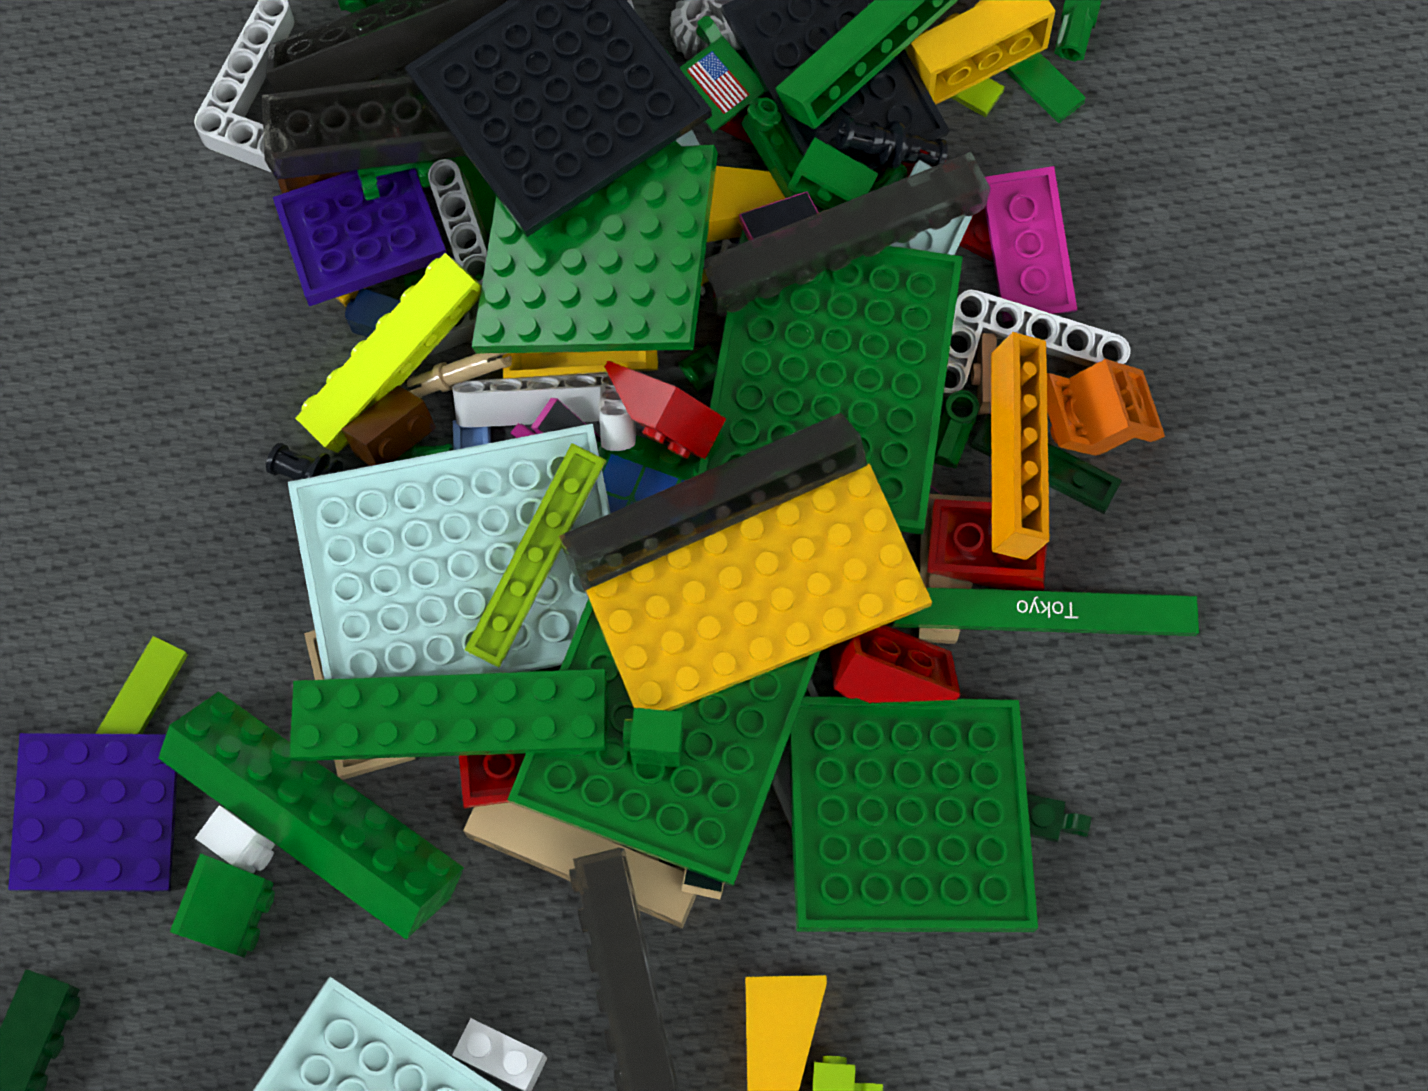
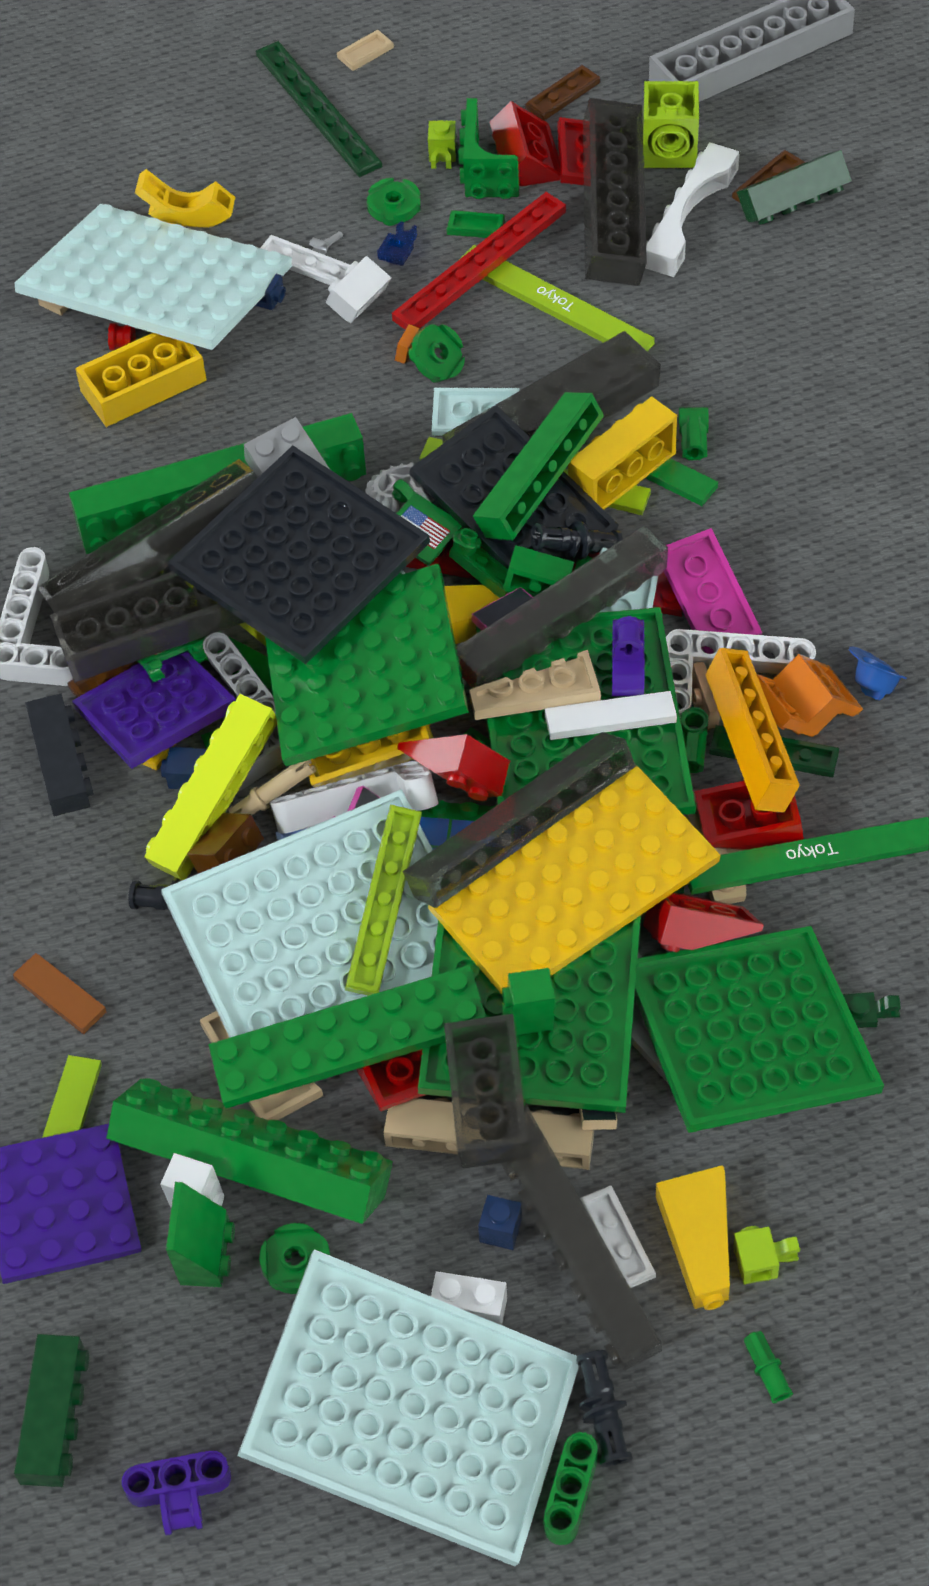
camera: 15 degrees left, 15 degrees down
(164, 556) = (59, 993): none -> dark orange tile
(239, 261) = (58, 754): none -> black brick
(317, 931) = (279, 1247): none -> green plate
(562, 971) = (500, 1222): none -> dark blue brick
(577, 834) = (487, 1091): none -> clear smoke brick
(688, 1021) = (619, 1235): none -> white tile
(801, 334) = (535, 690): none -> tan wing
(860, 387) = (610, 715): none -> white tile
(902, 318) = (628, 657): none -> dark purple piece
(1192, 395) = (874, 675): none -> blue piece

